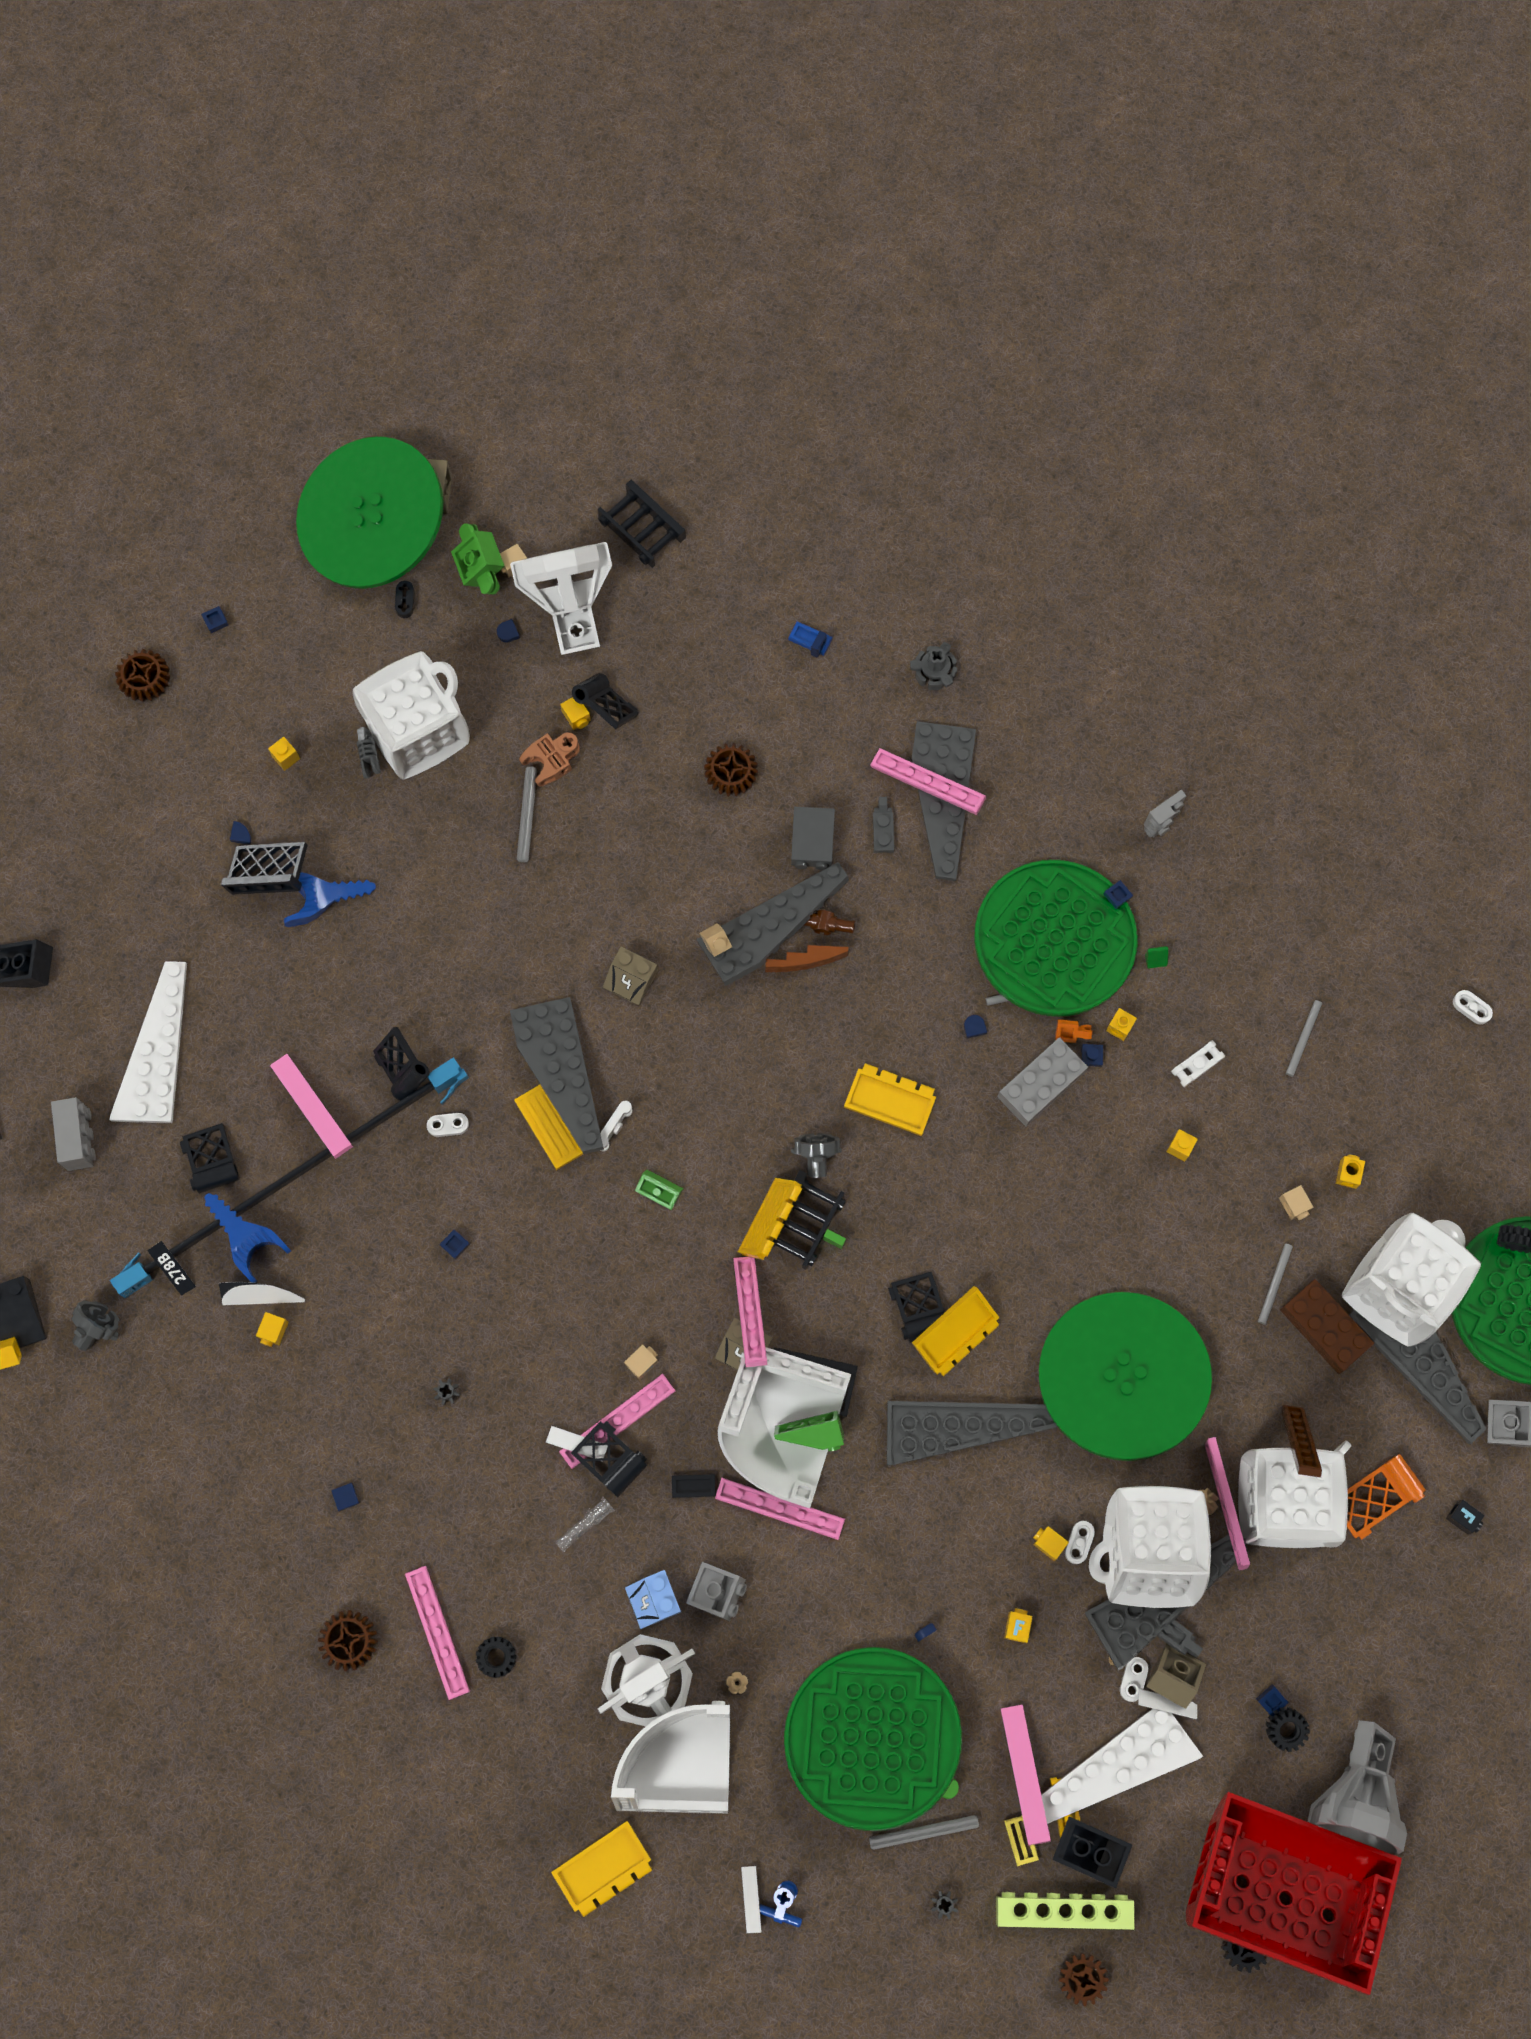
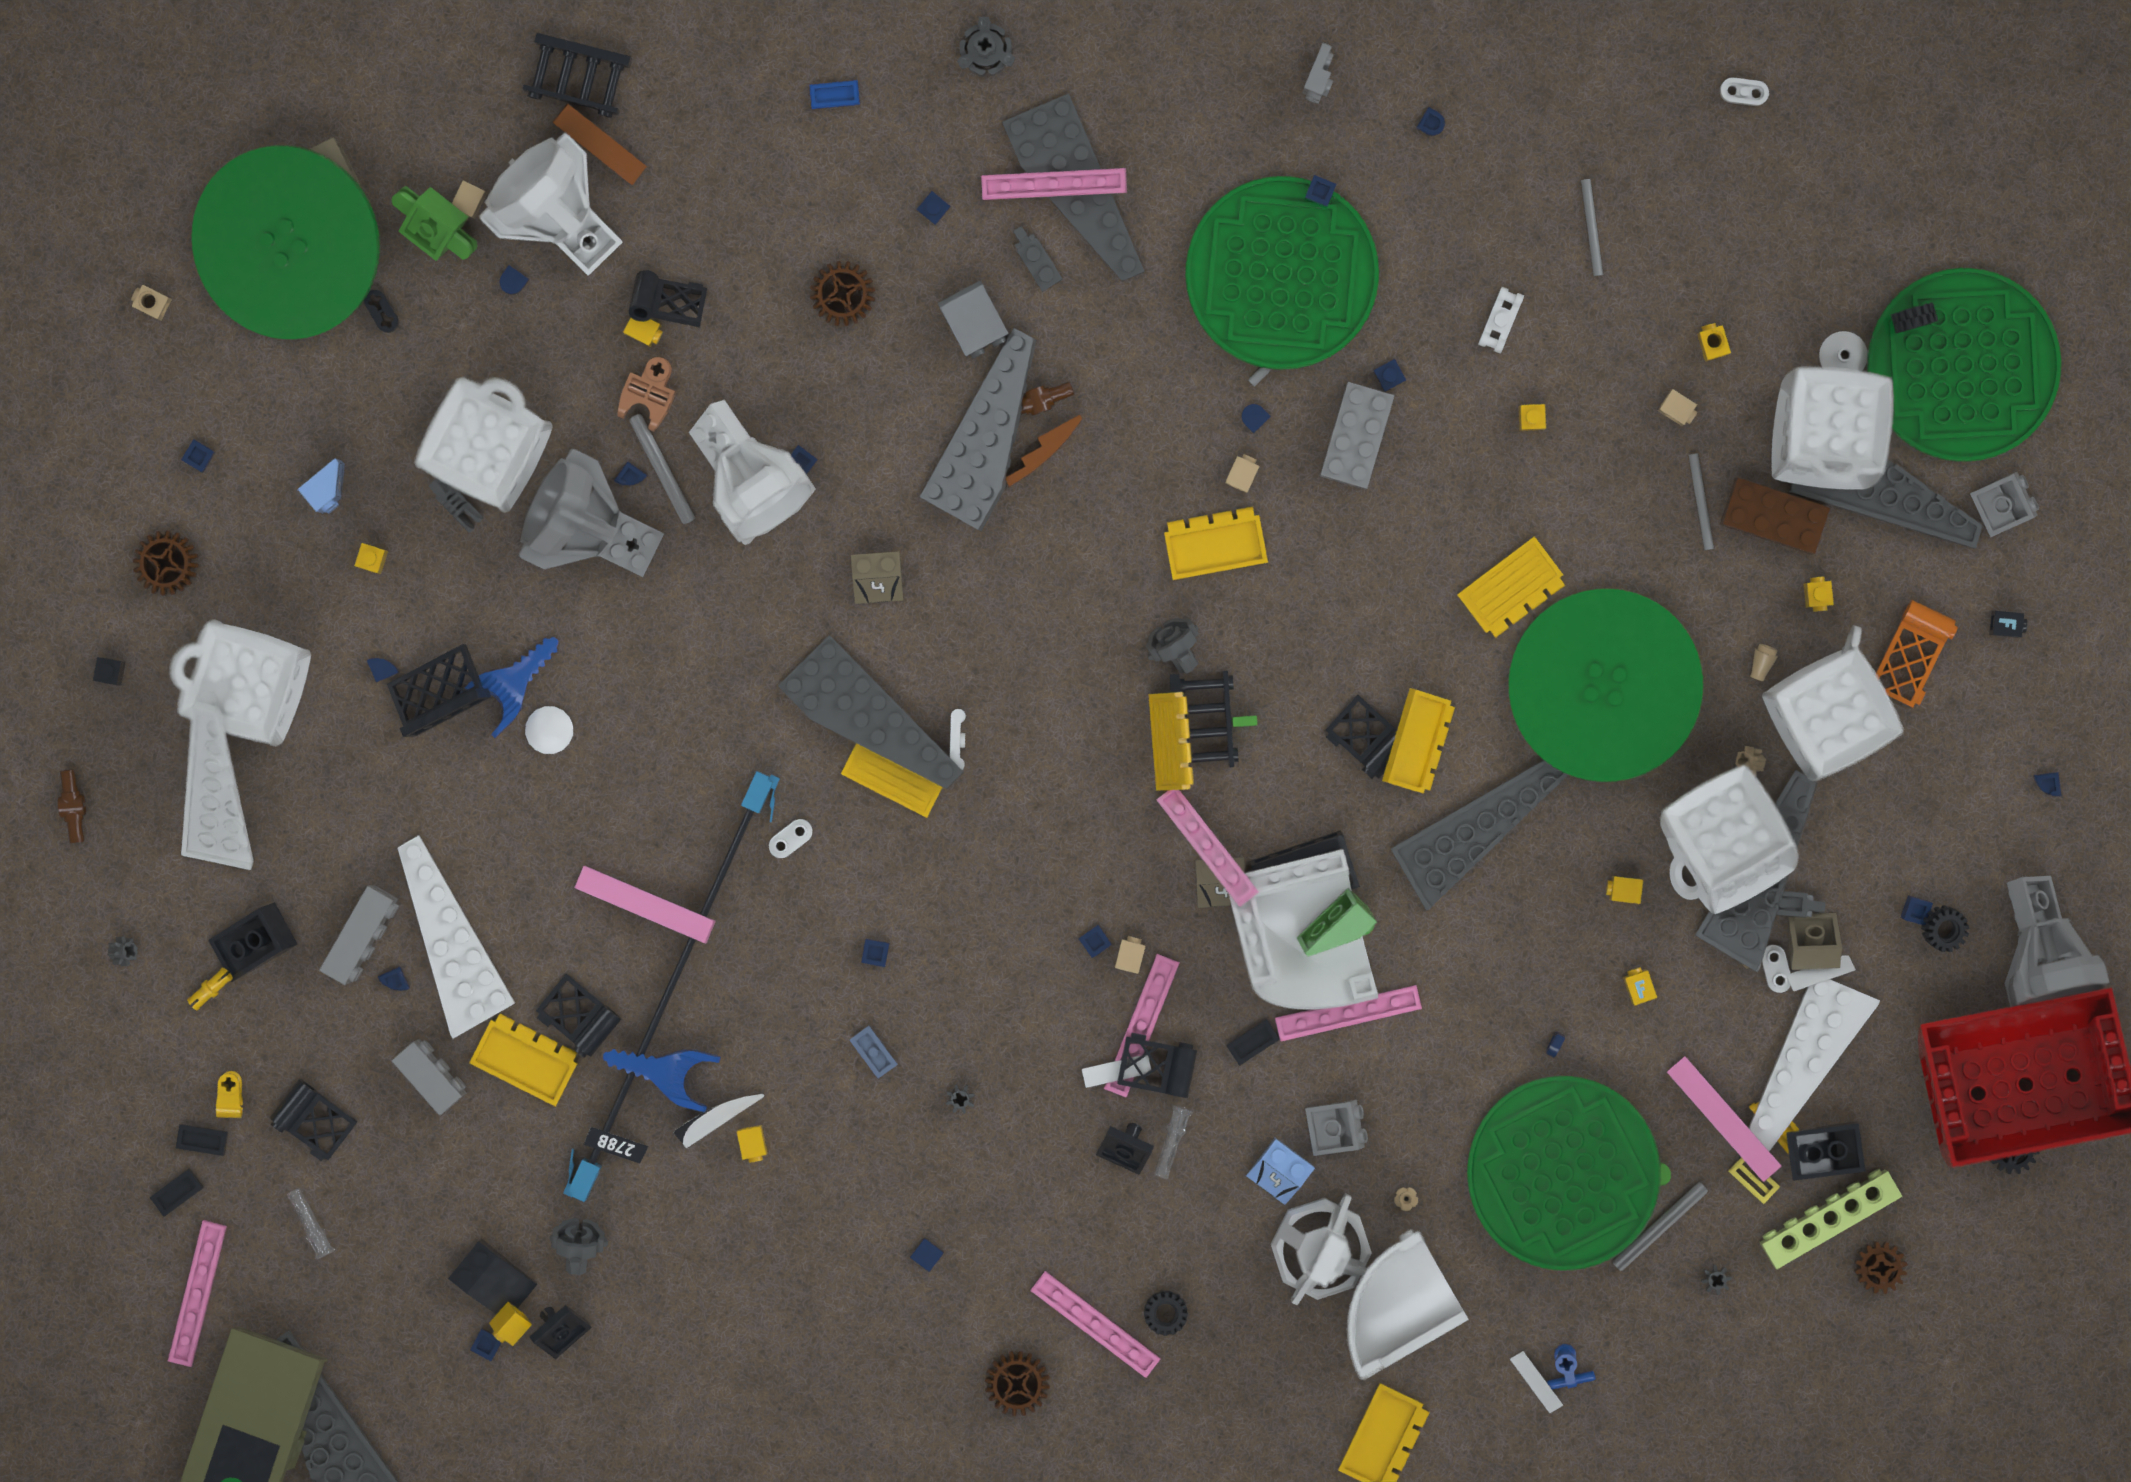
camera: 30 degrees left, 15 degrees up
(35, 1381) = (559, 1330): none -> black tile
(51, 853) = (213, 811): none -> white wing
(52, 722) = (109, 671): none -> black brick
(93, 1003) = (359, 934): none -> light grey brick
(99, 1053) = (394, 980): none -> dark blue tile
(133, 774) = (246, 676): none -> white piece
(149, 1169) = (524, 1062): none -> yellow hinge
(255, 510) = (161, 302): none -> tan brick
(285, 685) = (325, 487): none -> light blue slope
(327, 945) = (549, 730): none -> white dish
(405, 1317) = (873, 1052): none -> sand blue plate
(409, 1074) = (726, 813): black piece -> none
(454, 822) = (586, 522): none -> light grey plate
(501, 806) = (630, 475): none -> dark blue tile
(545, 1506) = (1125, 1148): none -> black tile
(583, 838) = (753, 482): none -> white plate
(622, 1336) = (1095, 941): none -> dark blue tile
(627, 577) = (599, 144): none -> dark orange slope
(627, 865) = (804, 459): none -> dark blue plate
(658, 1189) = (1040, 775): bright green slope -> none
(715, 939) = (943, 491): tan brick -> none
(818, 644) = (850, 100): dark blue tile -> none
(832, 751) = (933, 208): none -> dark blue plate
(941, 1059) = (1242, 473): none -> tan brick
(1069, 1031) = (1354, 365): orange plate -> none
(1079, 1542) = (1653, 871): white plate -> none
(1094, 1260) = (1510, 585): none -> yellow hinge
(1121, 1024) = (1401, 326): yellow brick -> none
(1157, 957) = (1397, 232): green slope -> none
(1226, 898) = (1431, 123): none -> dark blue tile
(1227, 1504) = (1775, 754): bright pink tile -> none
(1257, 1431) = (1763, 660): none -> tan cone
(1301, 1441) = (1811, 659): reddish brown tile -> none
(1328, 1405) = (1818, 594): none -> yellow brick
(1432, 1664) = (2049, 783): none -> dark blue tile

